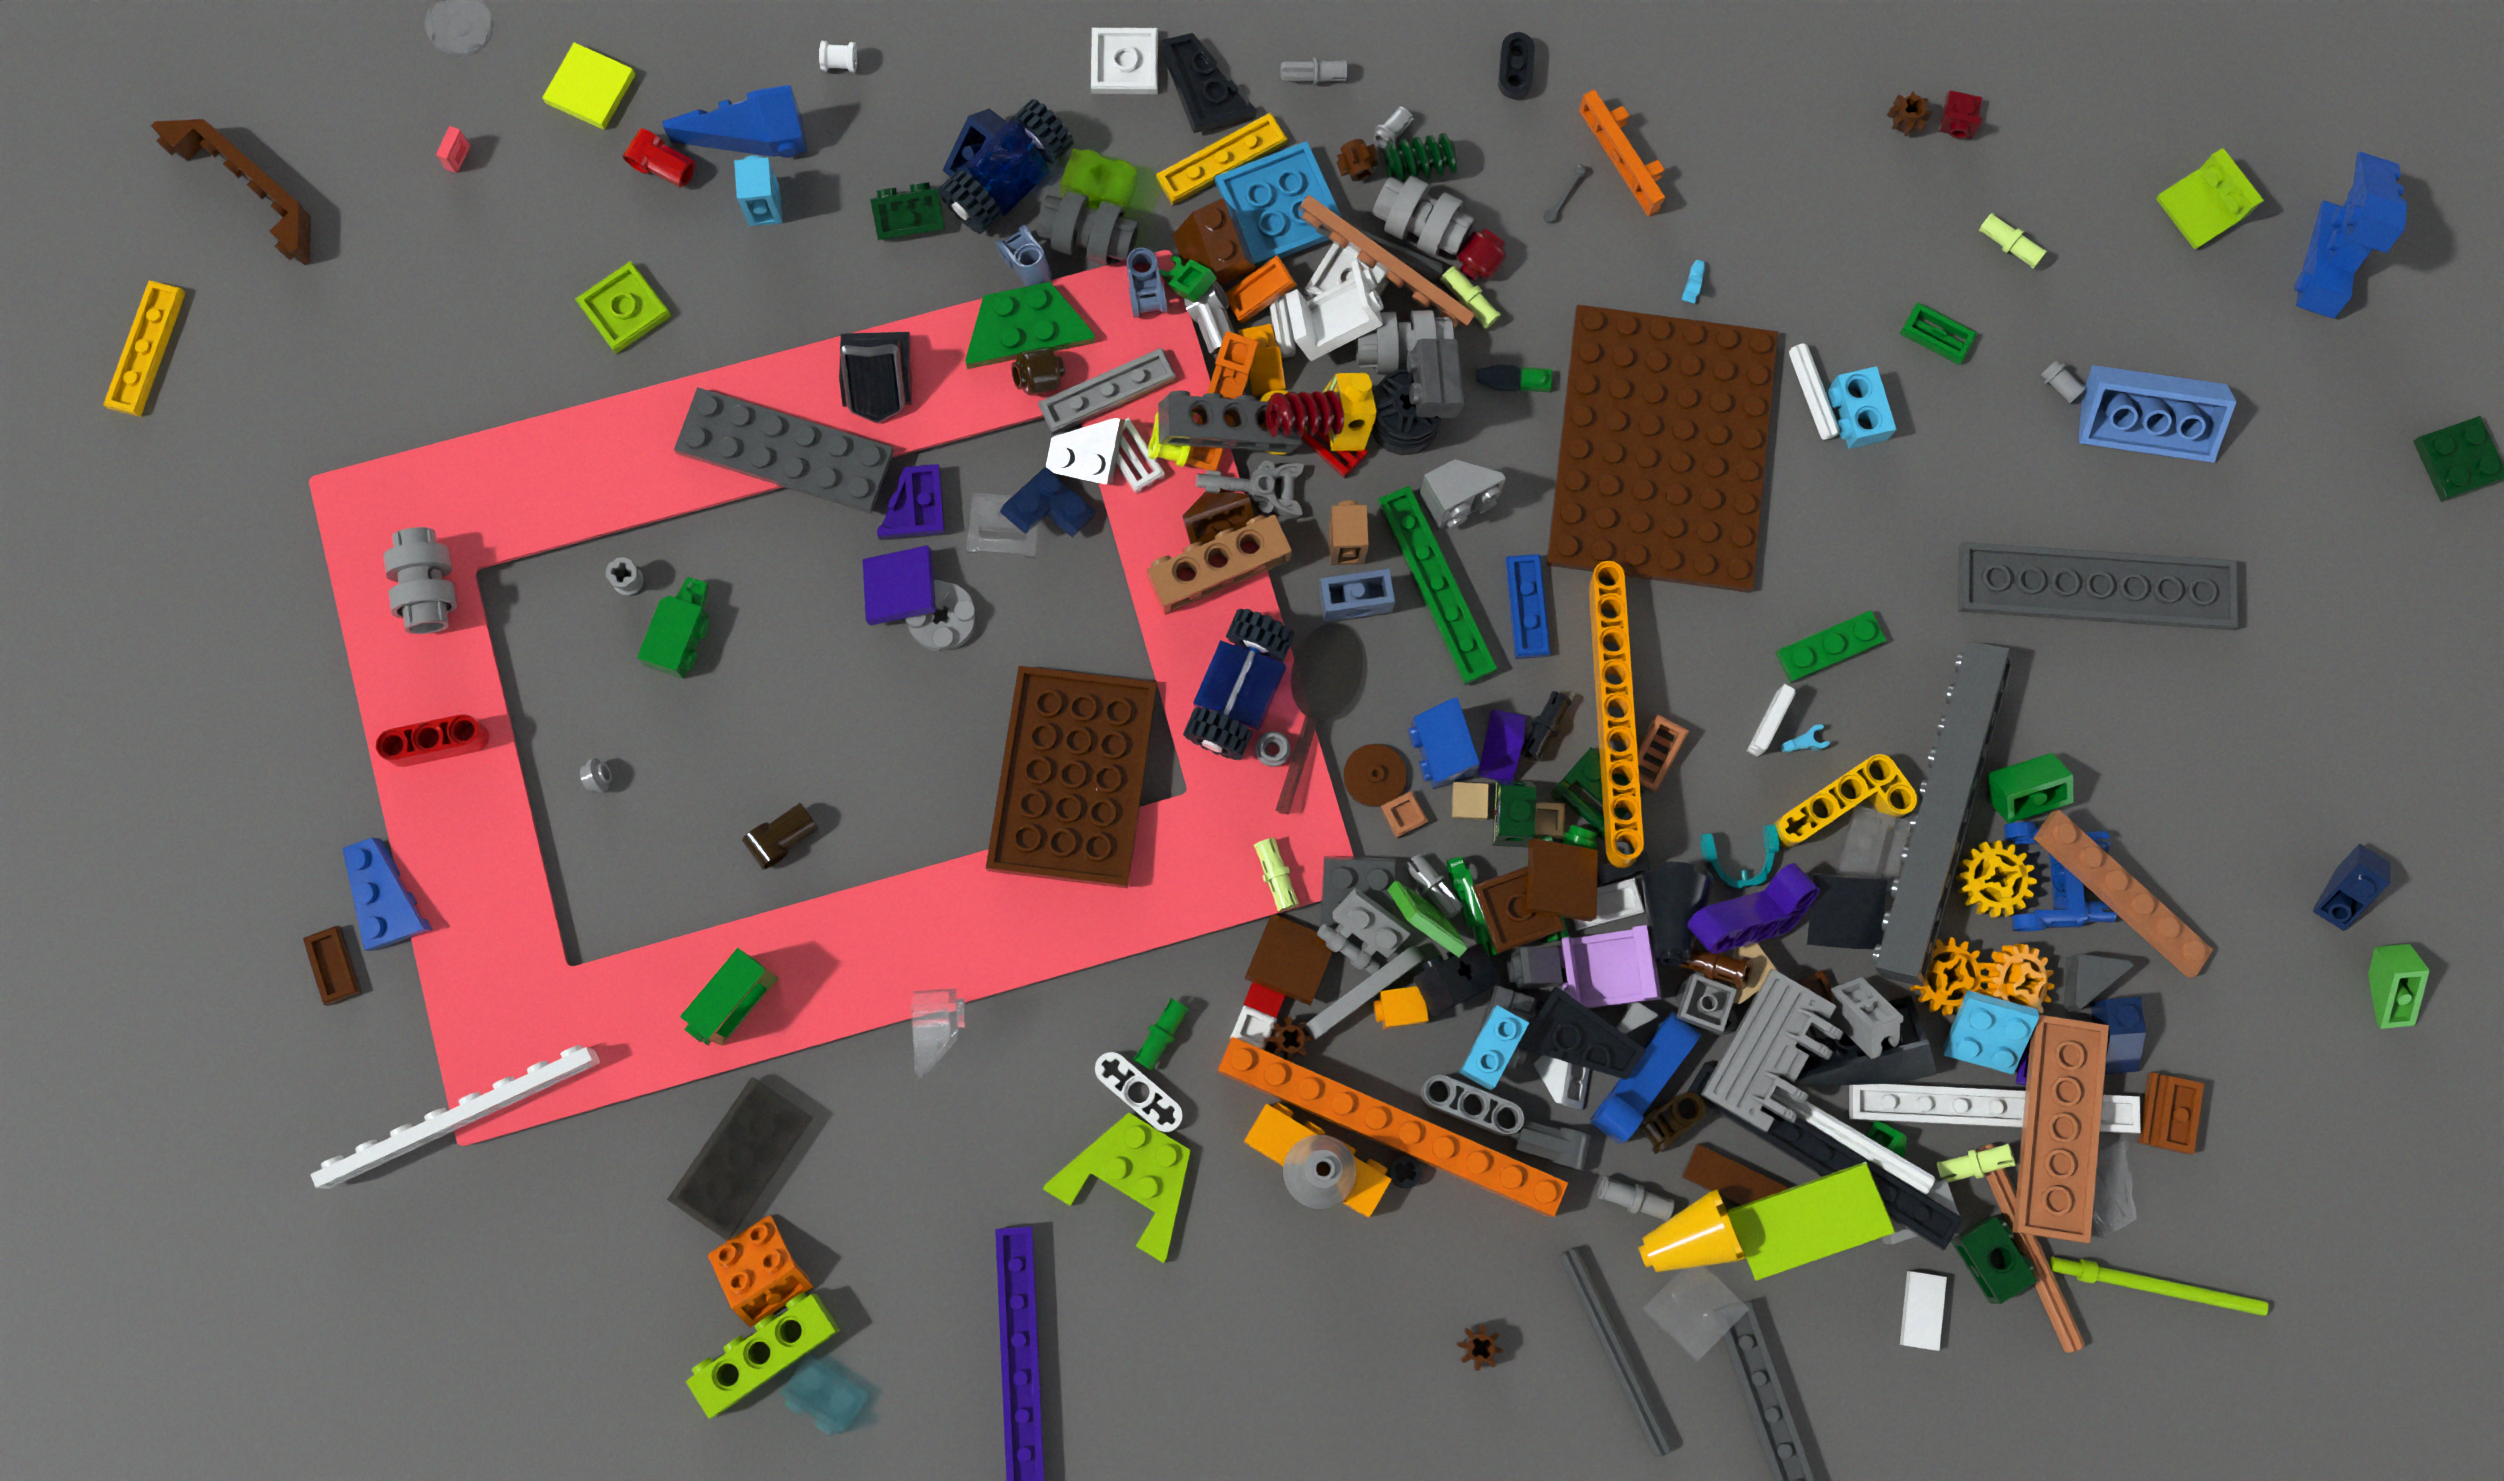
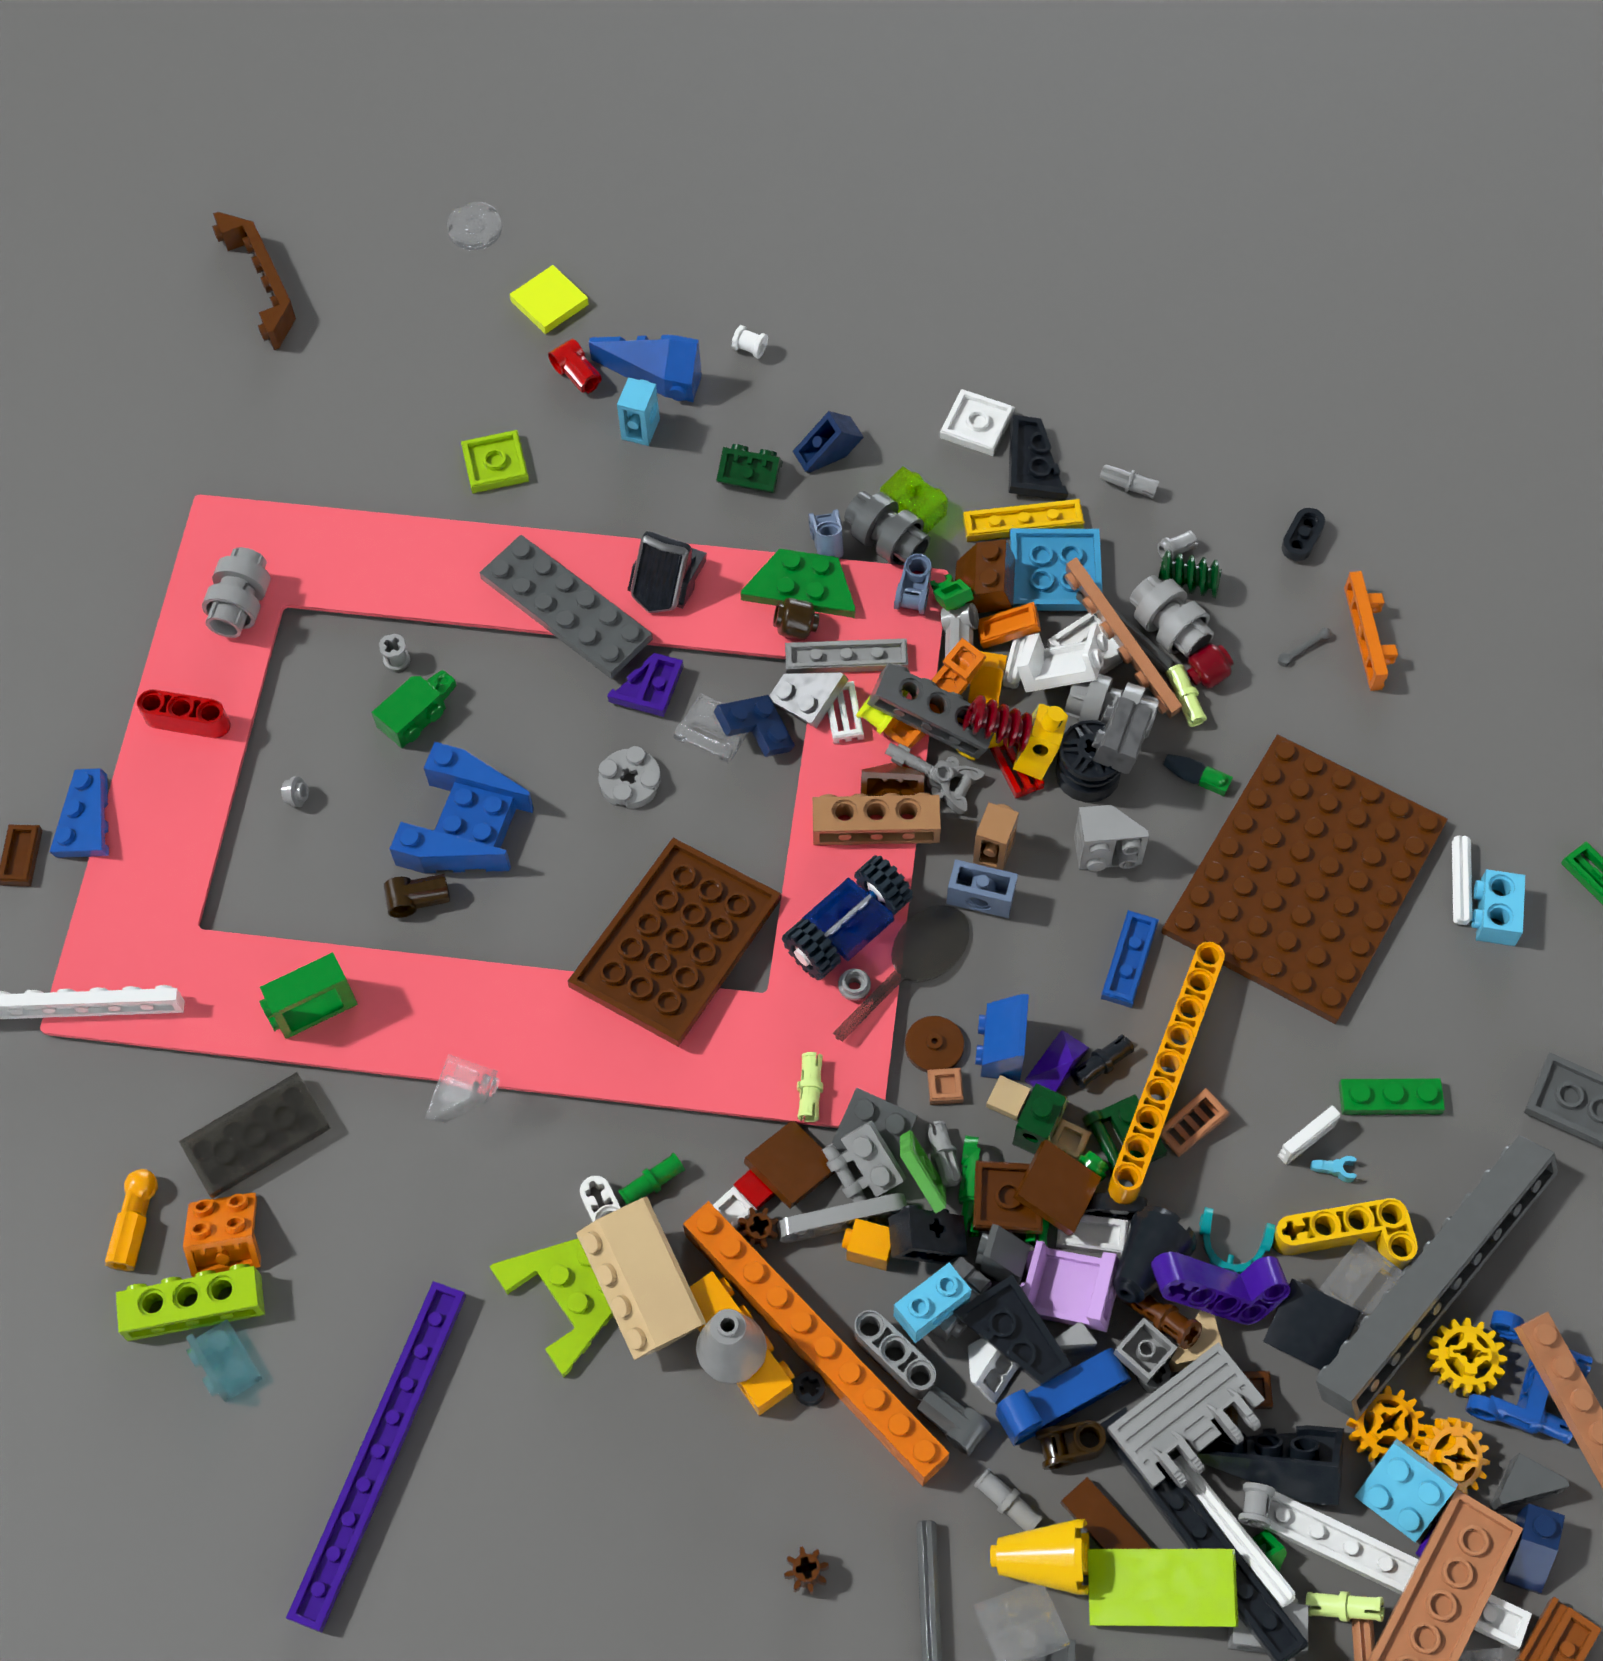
camera: 30 degrees right, 15 degrees down
(144, 348) = (126, 364): yellow tile -> none
(453, 149) = (424, 306): coral tile -> none
(660, 1301) = (131, 1221): none -> light orange piece
(799, 730) = (471, 821): none -> blue wedge
(899, 585) = (606, 739): dark purple tile -> none
(1007, 167) = (843, 461): plate -> none
(1202, 1143) = (640, 1278): none -> tan slope
(1357, 160) = (1135, 557): reddish brown gear -> none
(1437, 585) = (1056, 911): green plate -> none
(1694, 282) = (1388, 754): medium azure piece -> none
(1865, 1016) = (1289, 1421): light grey hinge -> none
(1865, 1107) = (1256, 1505): none -> light grey bush
(2030, 788) = (1530, 1287): green brick -> none

